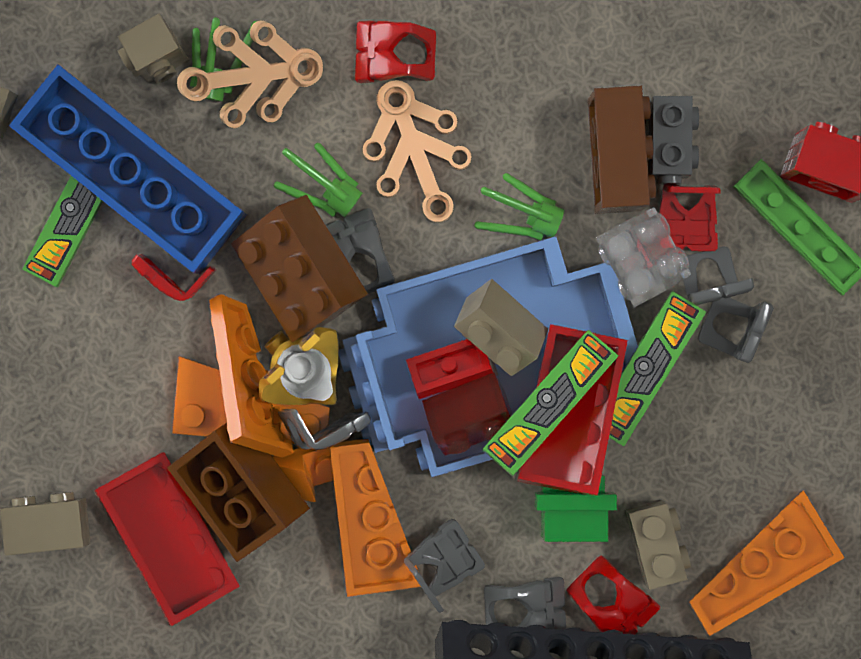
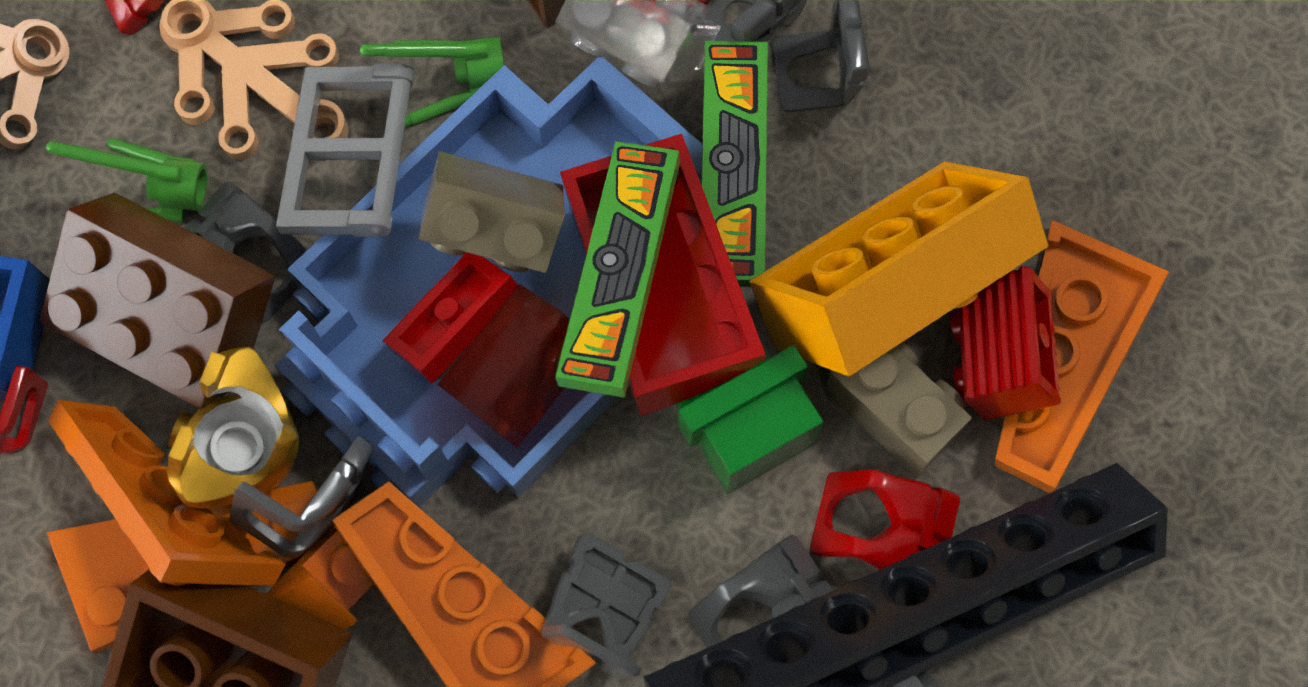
camera: 35 degrees left, 15 degrees down
(420, 221) = (304, 147): none -> light grey window
(699, 480) = (899, 265): none -> light orange brick
(731, 548) = (1007, 347): none -> red brick

